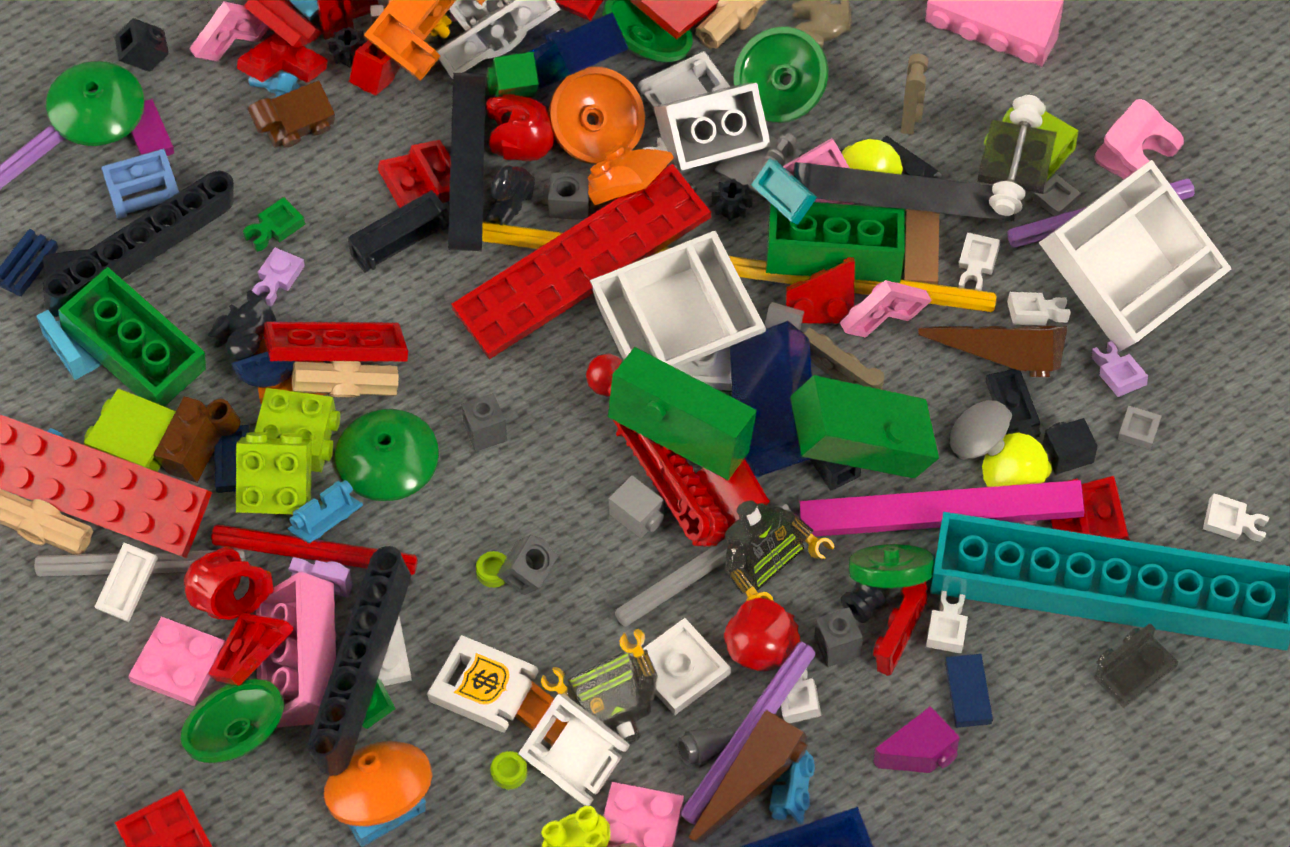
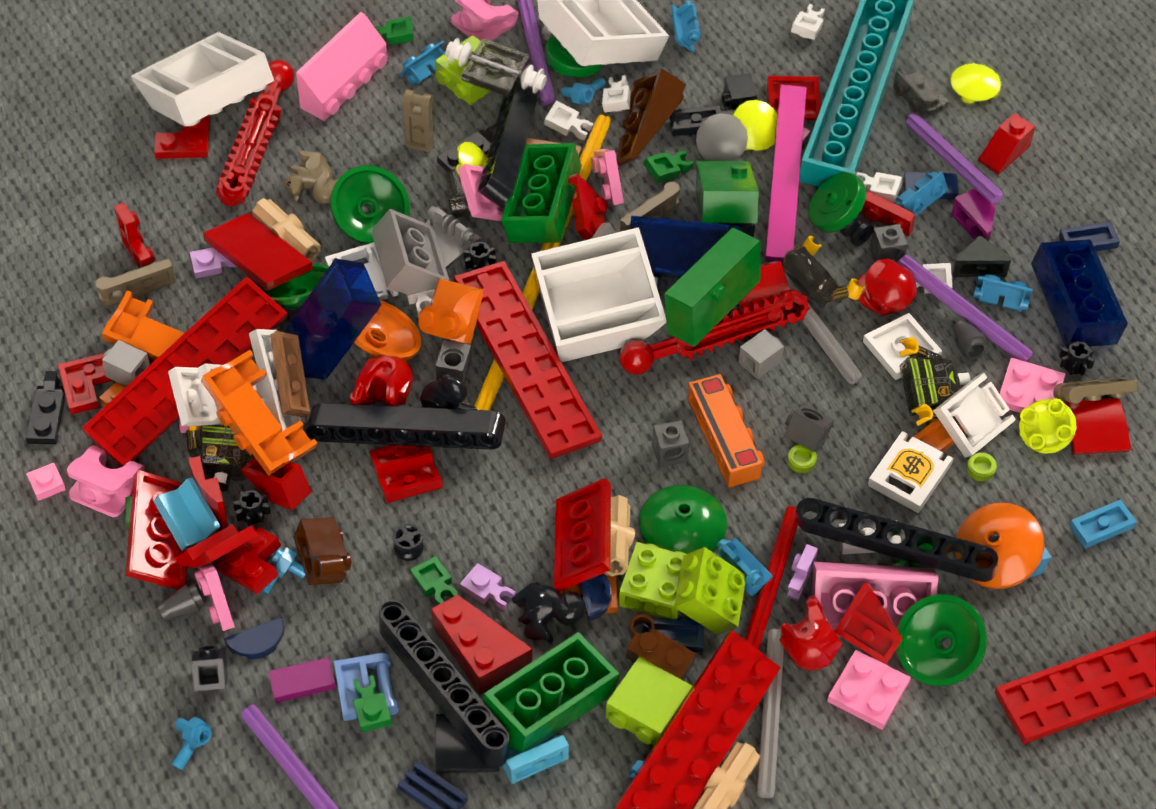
camera: 85 degrees left, 5 degrees down
(72, 53) = (195, 734): none -> dark azure piece
(95, 116) = (271, 729): green dish -> none
(106, 188) = (370, 708): none -> green plate
(126, 582) = (794, 719): white tile -> none
(191, 86) = (256, 641): none -> dark blue tile
(194, 269) = (479, 644): none -> wedge
(326, 184) = (410, 535): none -> black wheel
(397, 231) = (464, 488): black container -> none
(510, 37) = (290, 374): none -> medium nougat tile
(513, 75) = (340, 369): green brick -> none
(515, 478) = (725, 431): none -> orange brick
(760, 762) = (1001, 299): reddish brown wedge -> none
(783, 191) = (504, 203): teal tile -> none
(841, 749) = (981, 259): none -> pearl dark grey slope
(925, 375) = (664, 167): none -> green plate
(928, 667) = (928, 190): none -> dark azure hinge
(1003, 703) = (954, 159): none -> medium lavender axle
(1028, 271) = (583, 93): none -> dark azure piece
(1054, 102) = (417, 69): none -> dark azure hinge
(1060, 779) = (1007, 143): none -> red slope
(1083, 63) = (397, 31): none -> green plate
(1118, 372) = (679, 58): lavender plate -> none
(1139, 427) = (724, 59): light grey tile -> none
(1177, 739) = (975, 83): none -> neon yellow dish
(1180, 370) = (685, 26): none -> dark azure hinge

